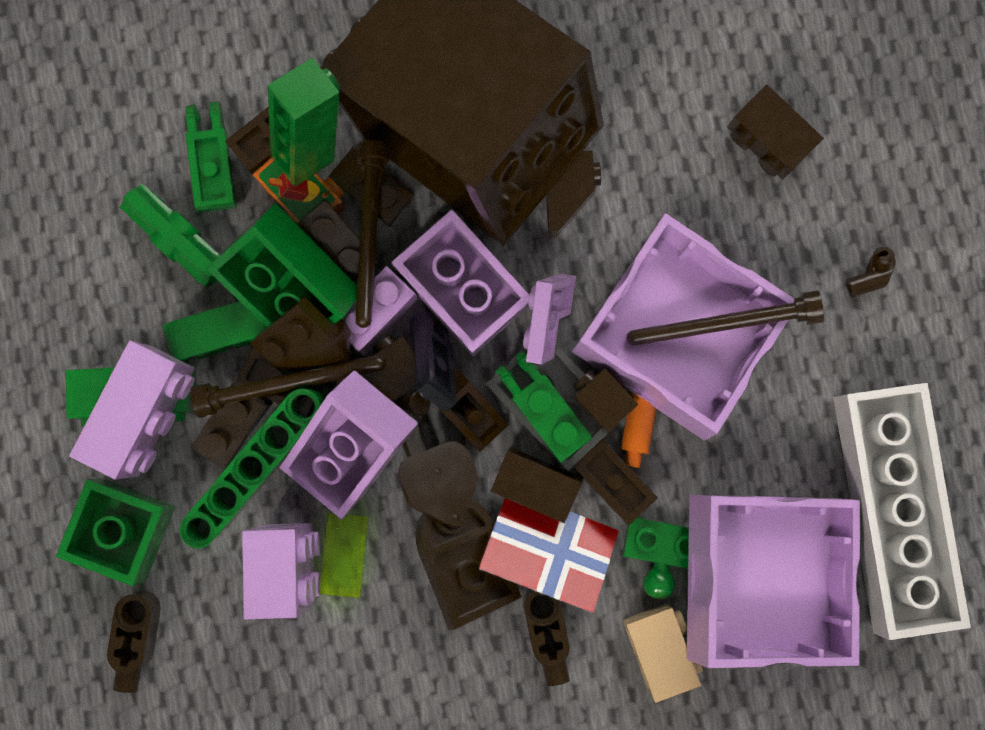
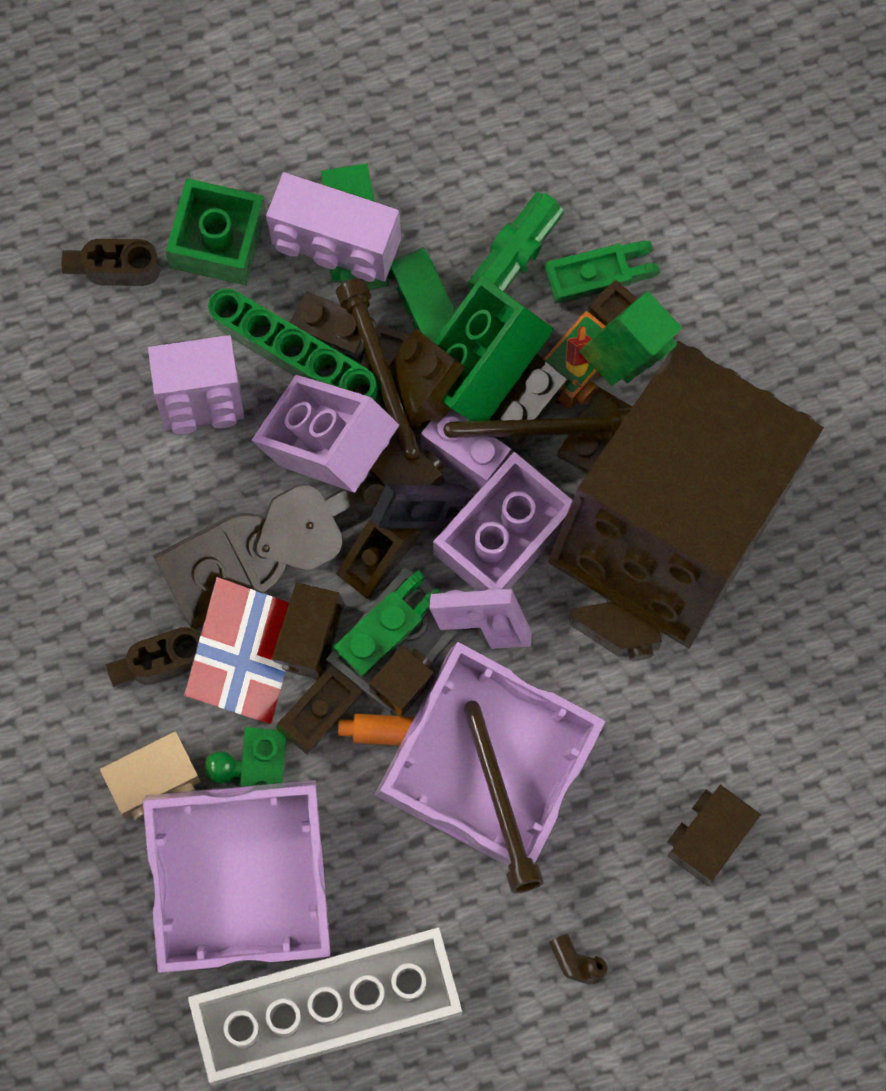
camera: 85 degrees right, 10 degrees down
(344, 555) = (215, 451): clear neon green plate -> none

